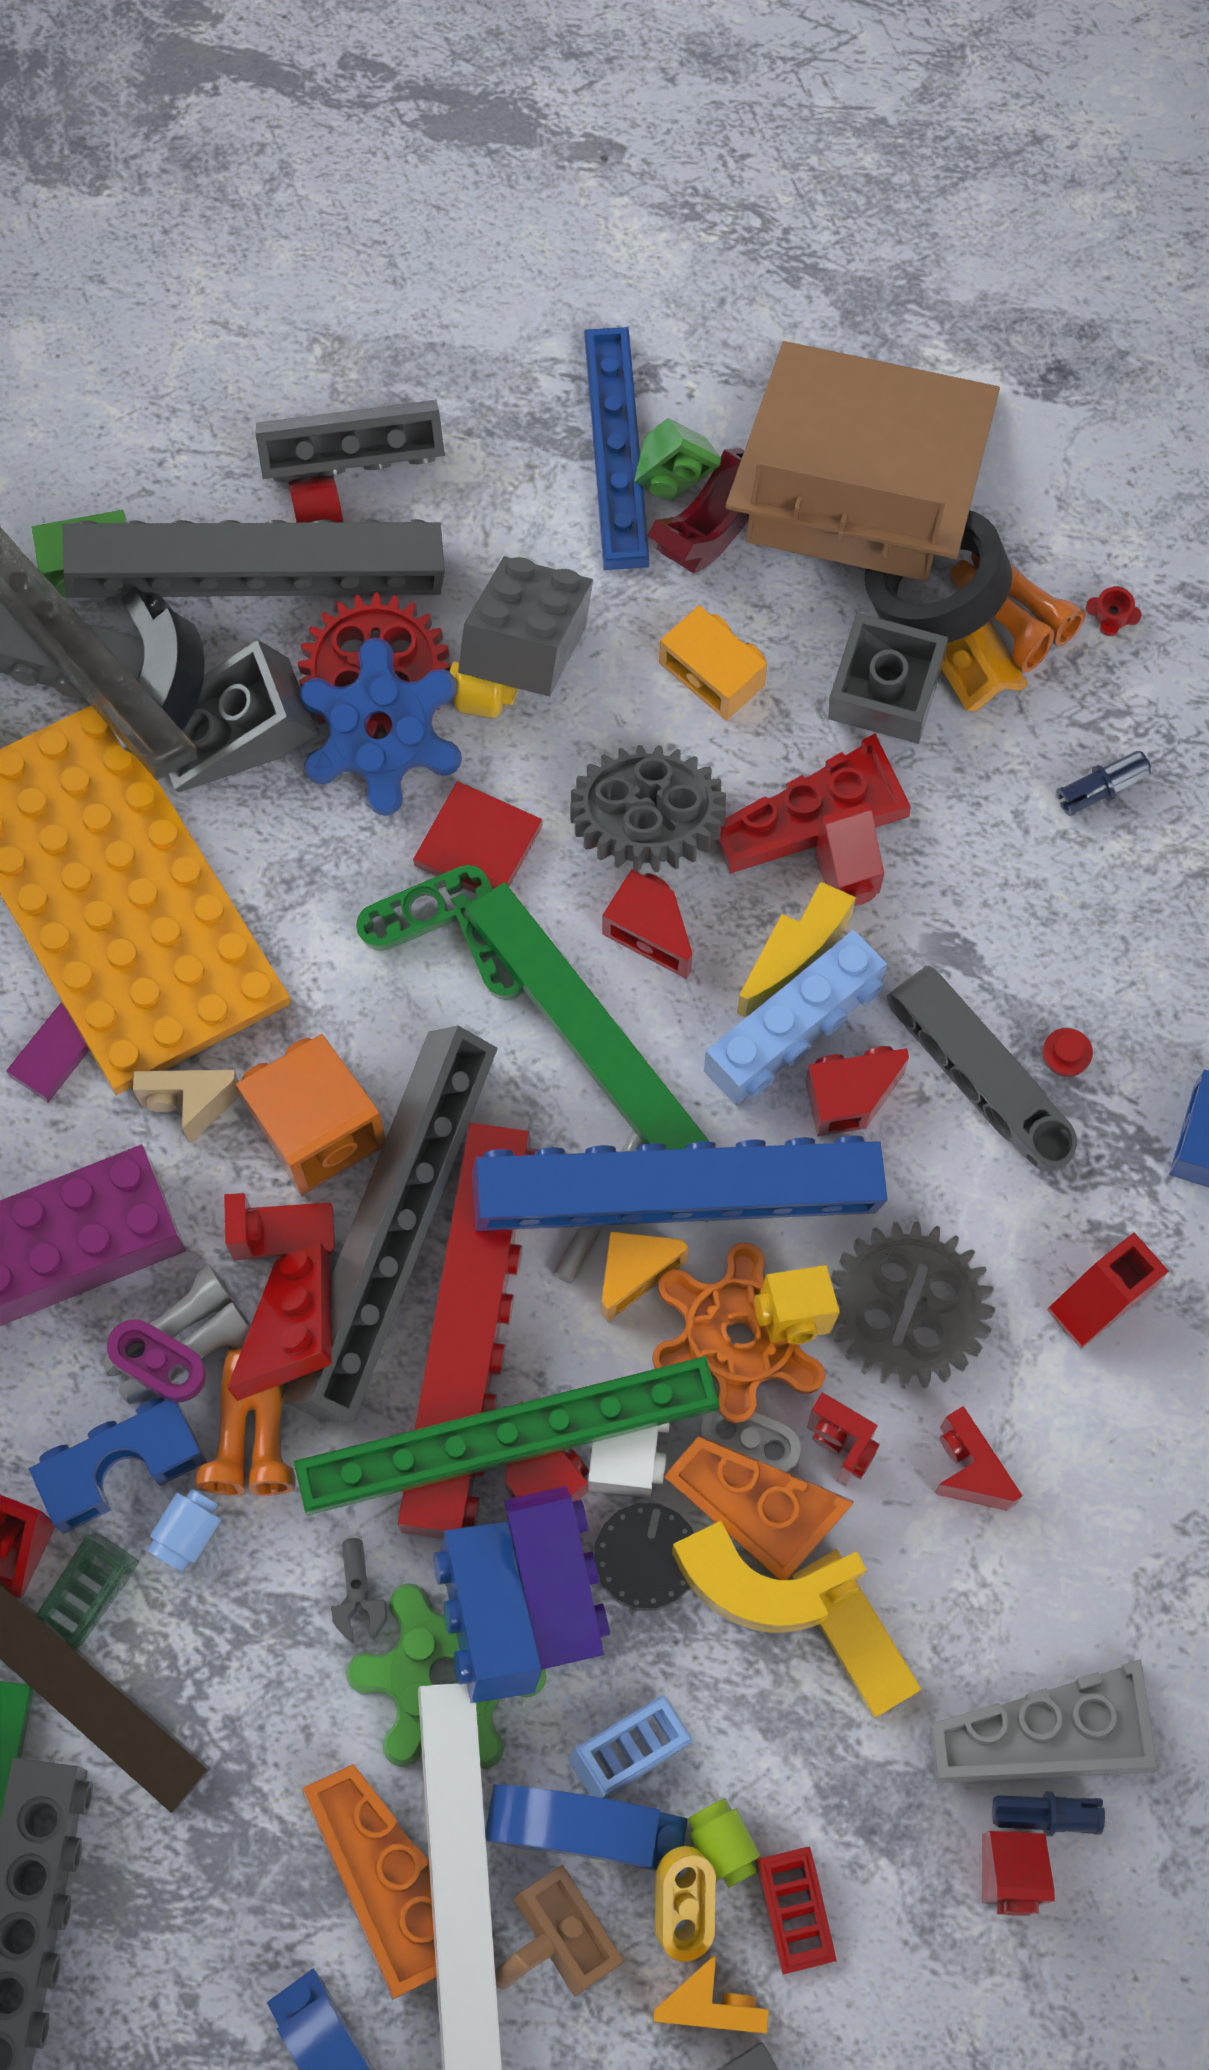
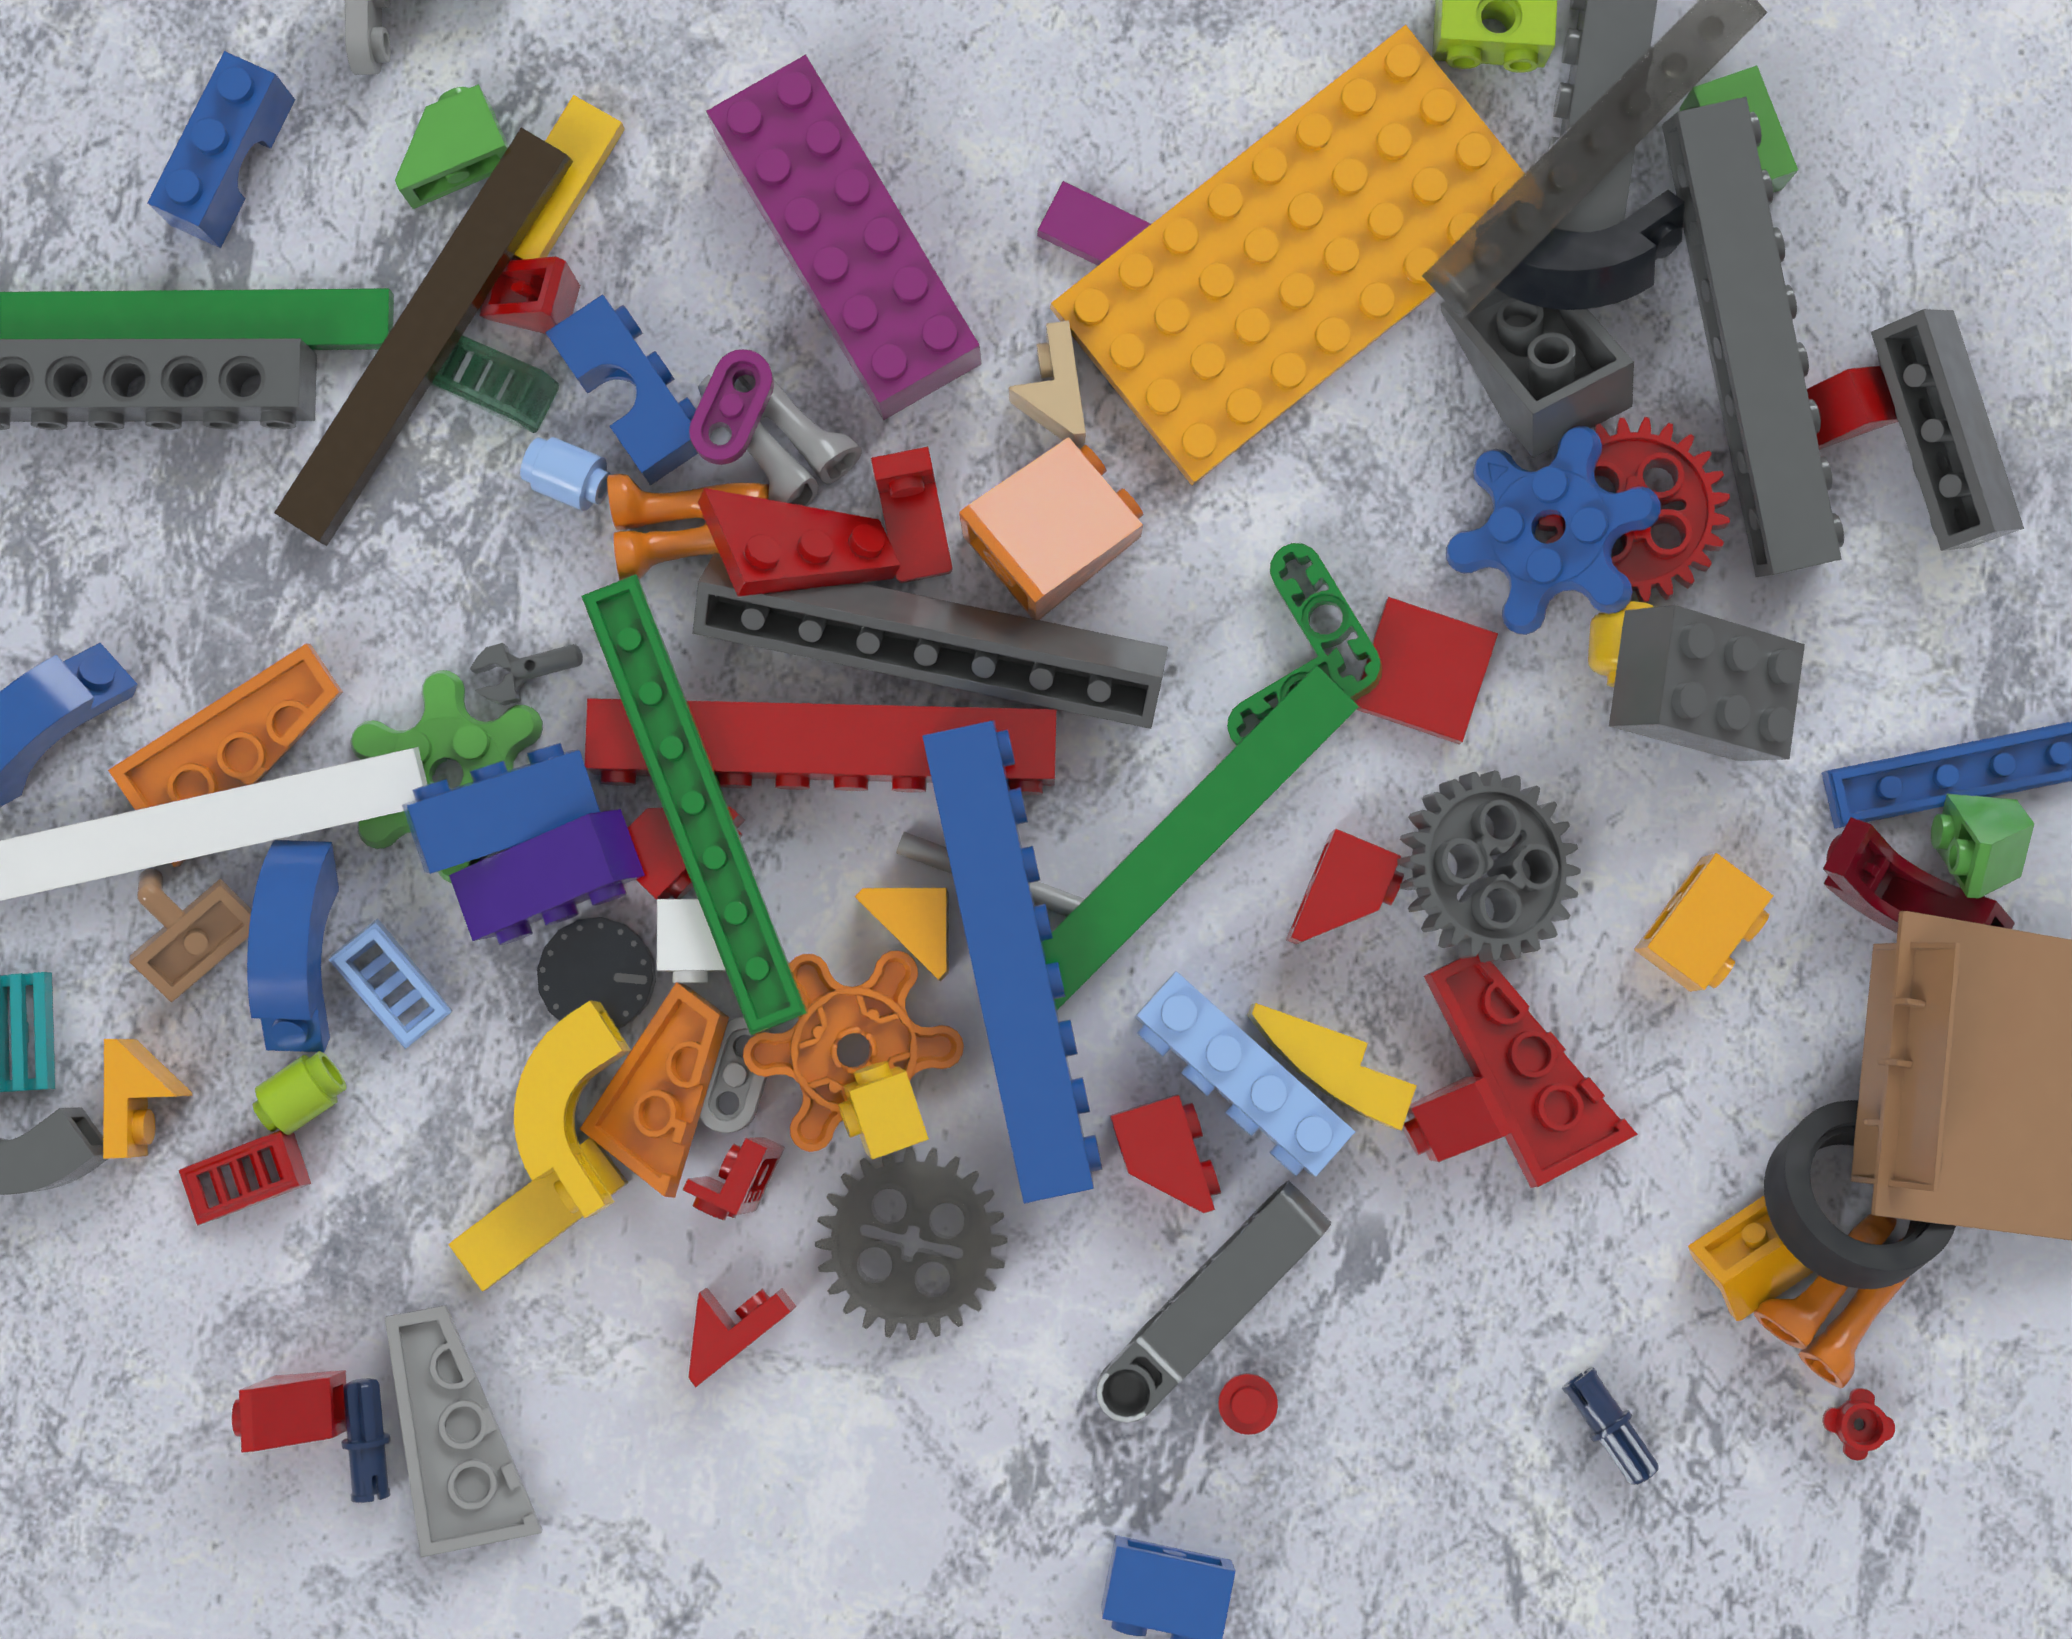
camera: 85 degrees right, 15 degrees up
(685, 1899) = (229, 1058): yellow plate -> none
(887, 678) = (1709, 1142): dark grey slope -> none
(1108, 1290) = (951, 1471): red slope -> none

